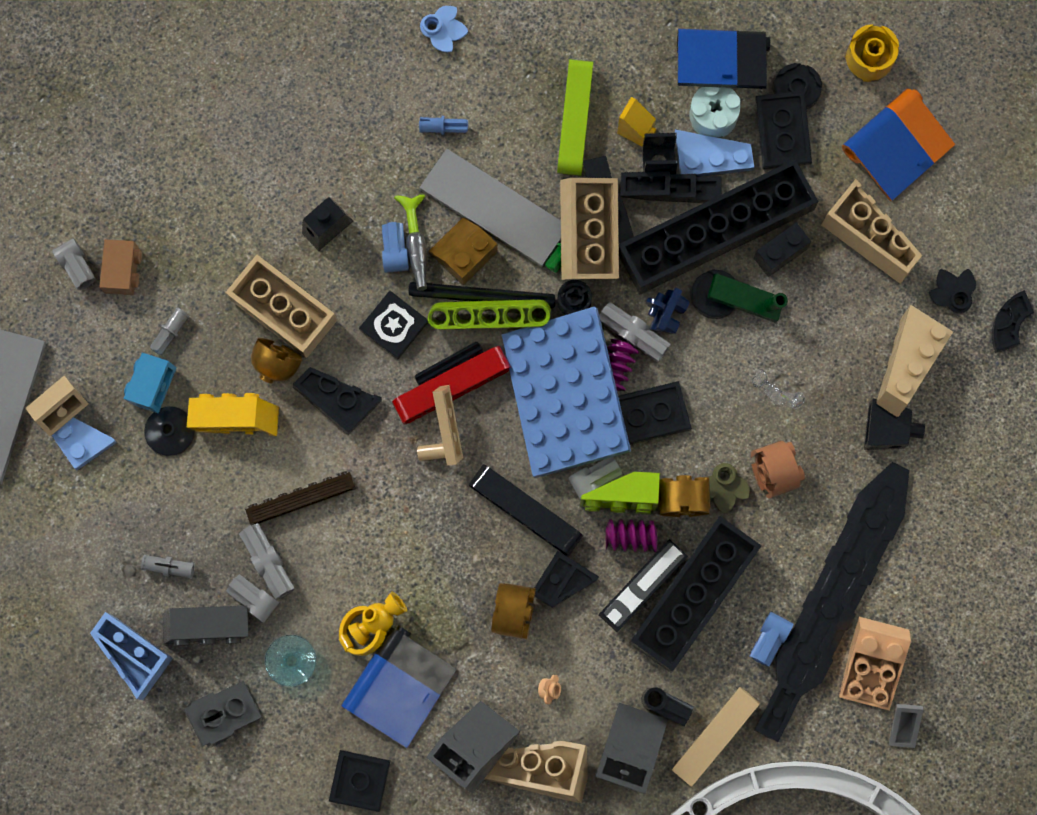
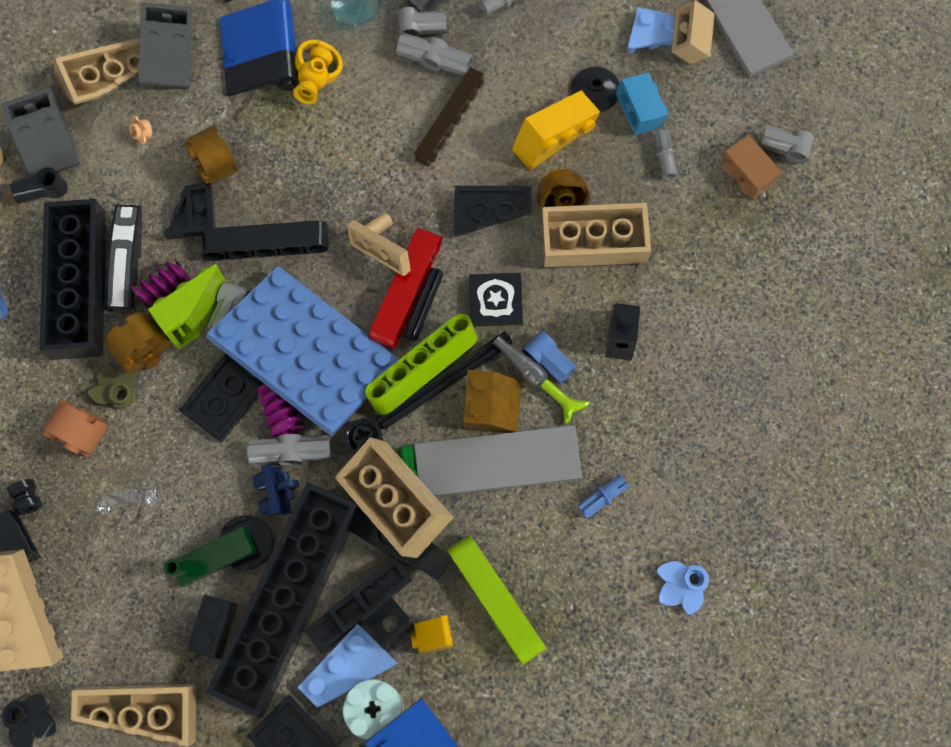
camera: 140 degrees right, 5 degrees down
(850, 451) = (24, 497): none -> black wheel

